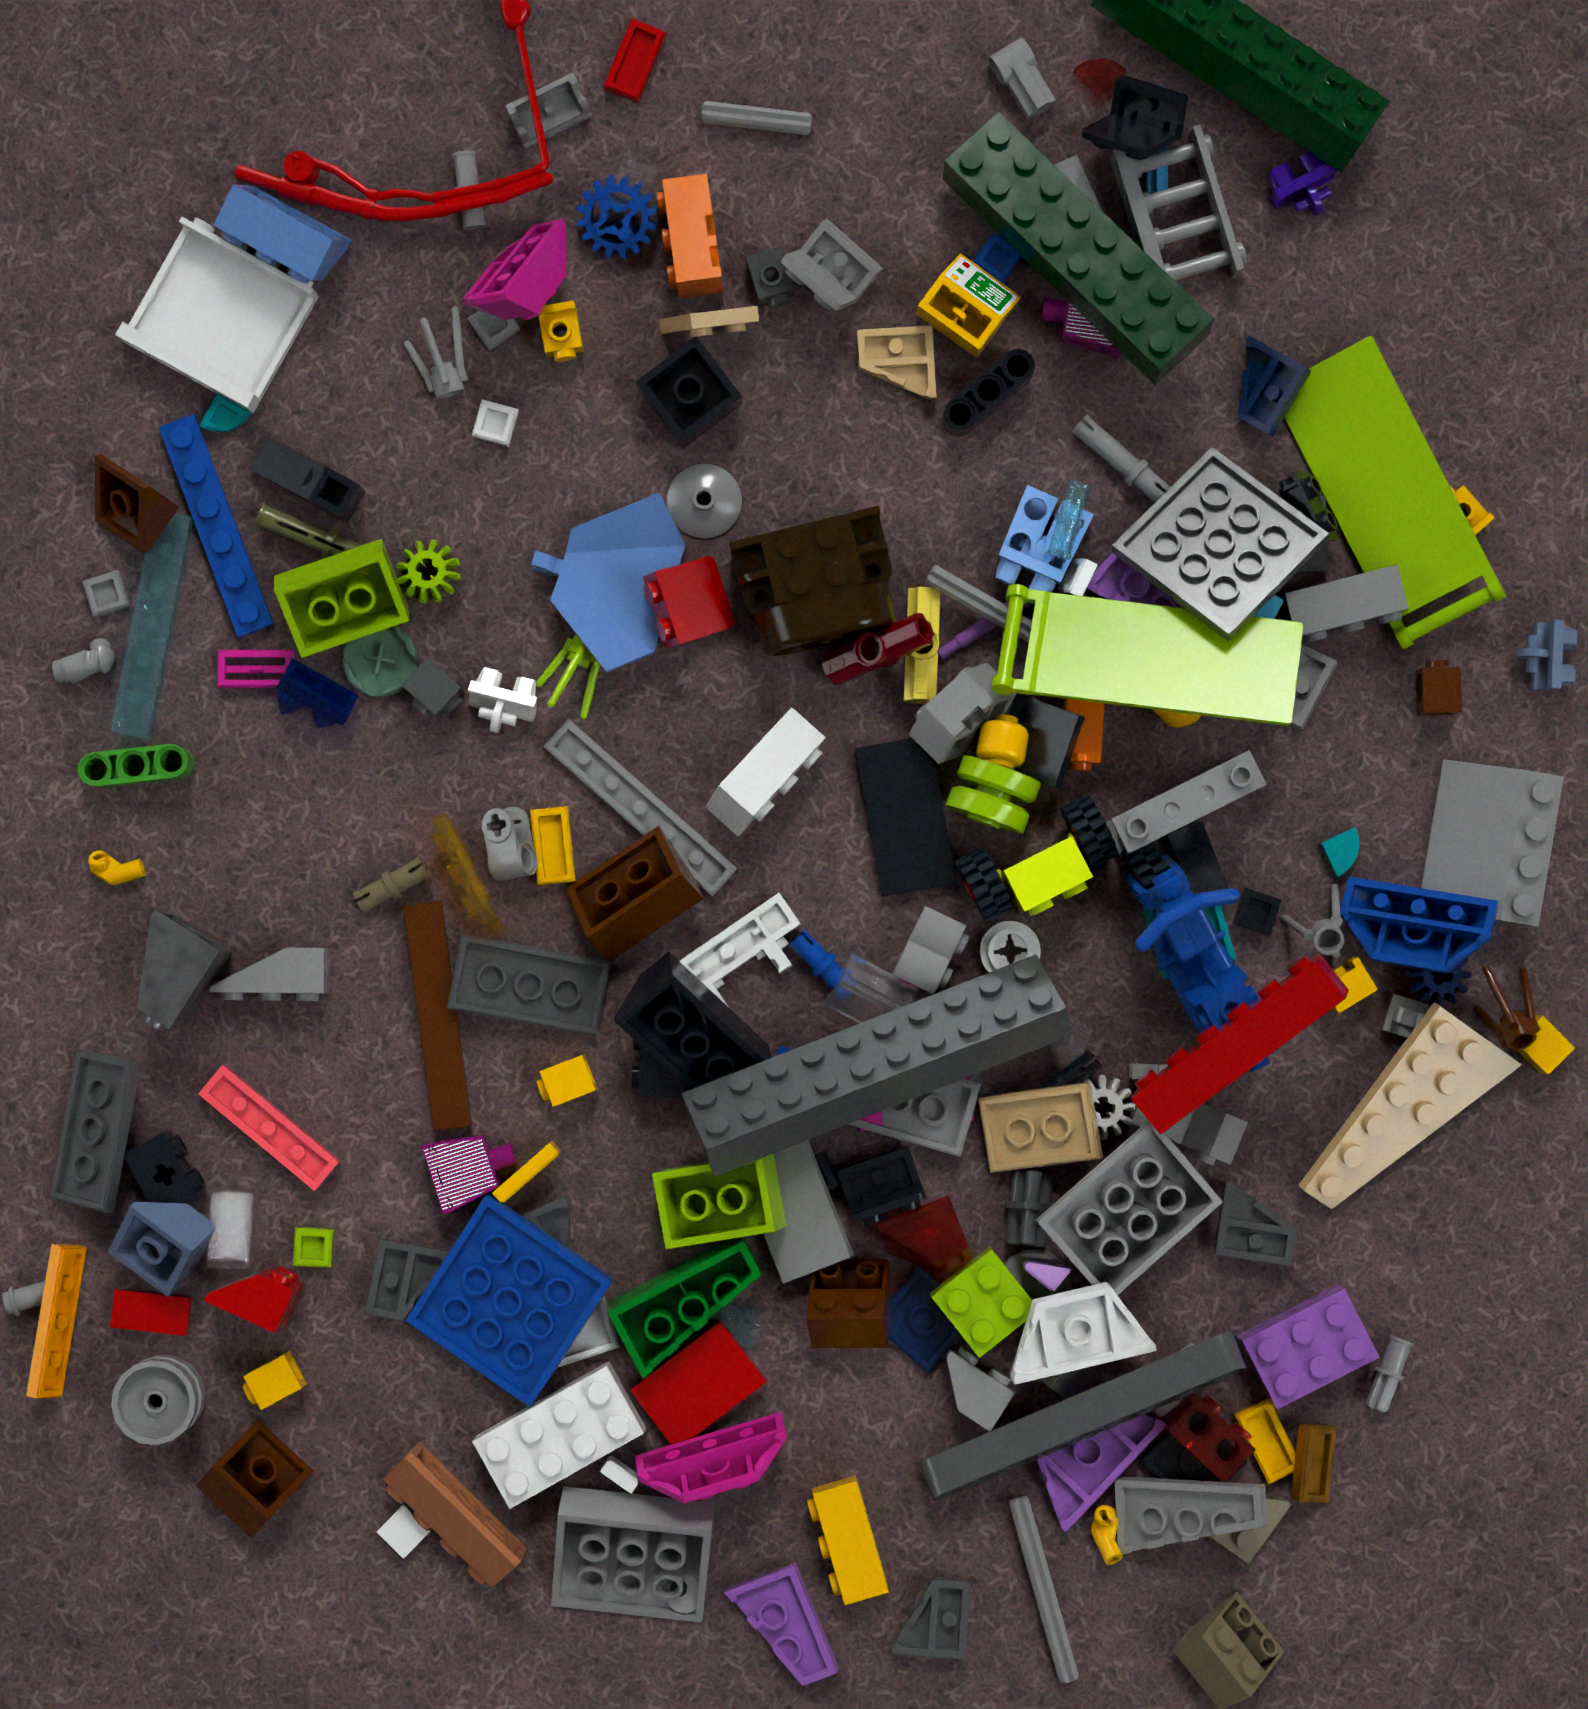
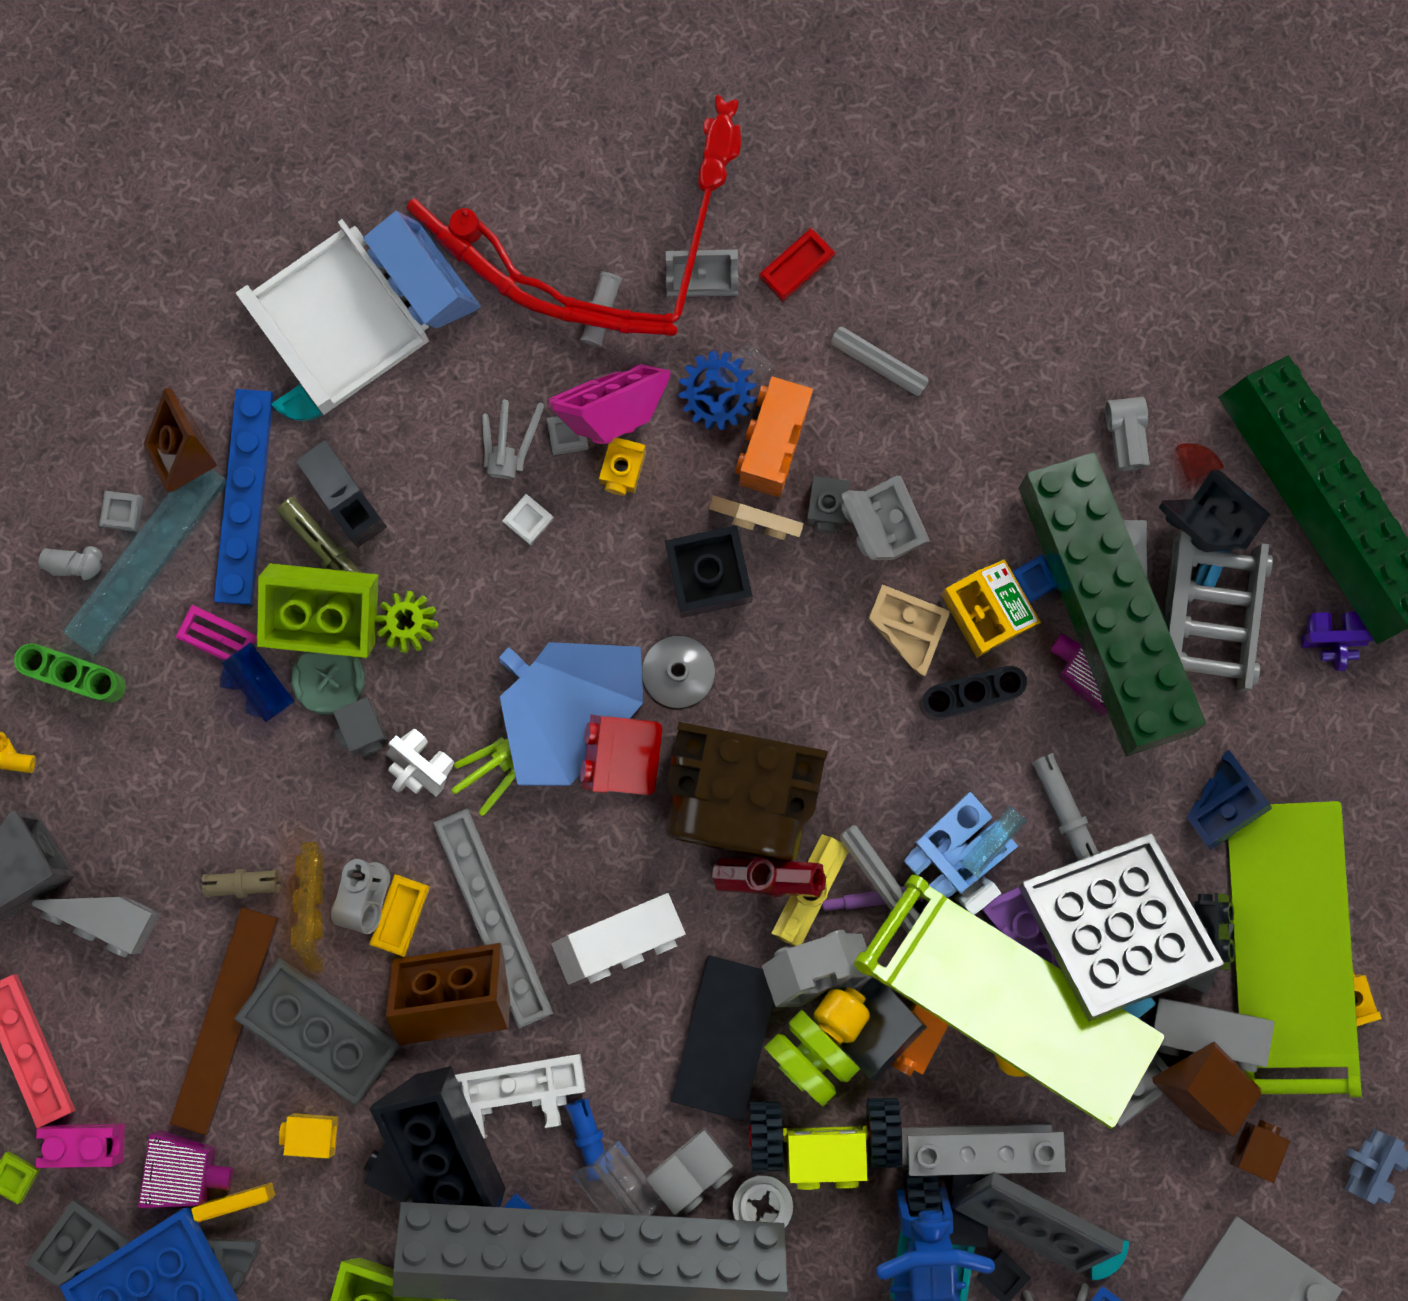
camera: 25 degrees right, 5 degrees down
(362, 1187) = (80, 1145): none -> dark pink brick
(1263, 846) = (1036, 1223): none -> dark grey tile
(1367, 654) = (1210, 1090): none -> reddish brown slope

